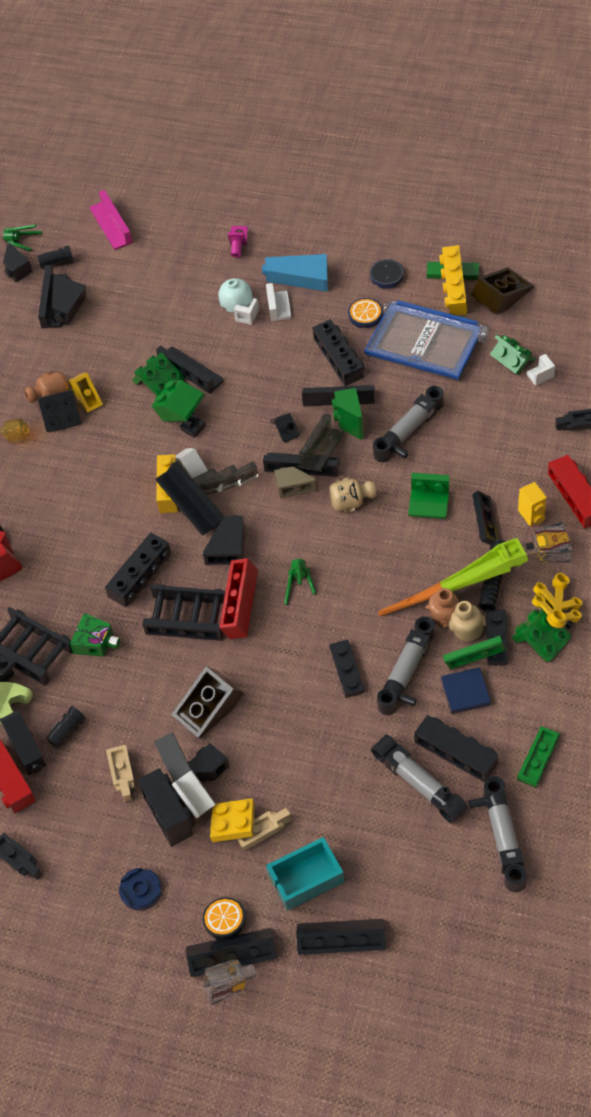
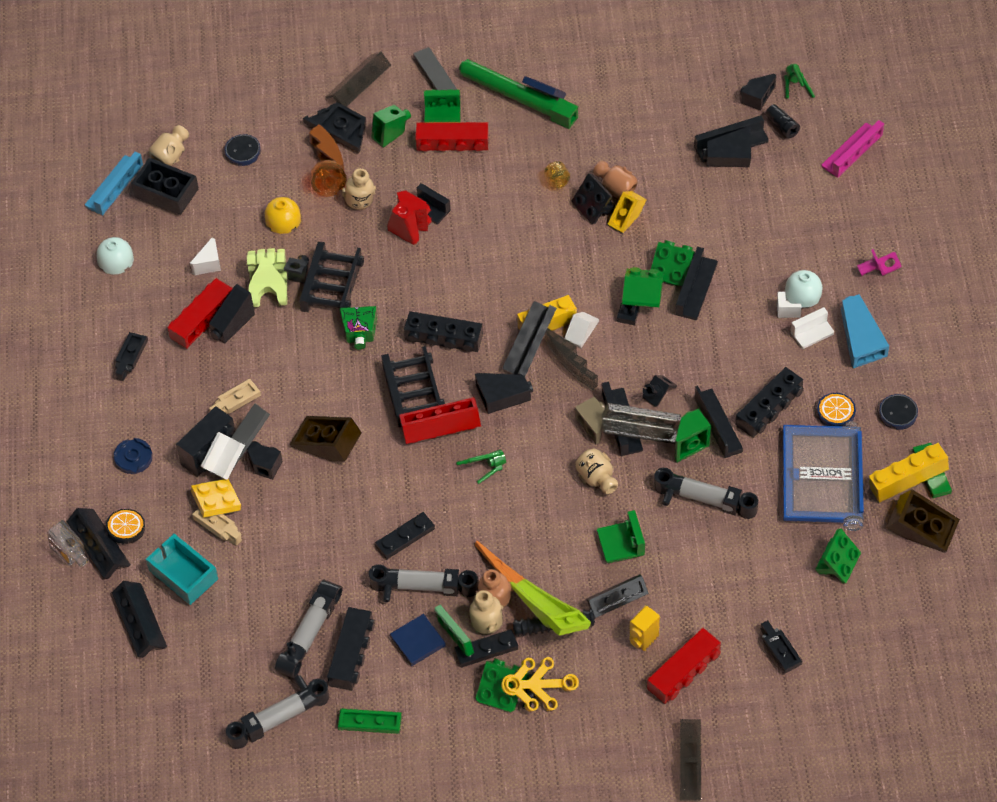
camera: 65 degrees right, 0 degrees up
(65, 727) = (261, 340): black axle -> none
(543, 372) = (827, 592): white panel -> none
(550, 544) = (609, 661): torso -> none

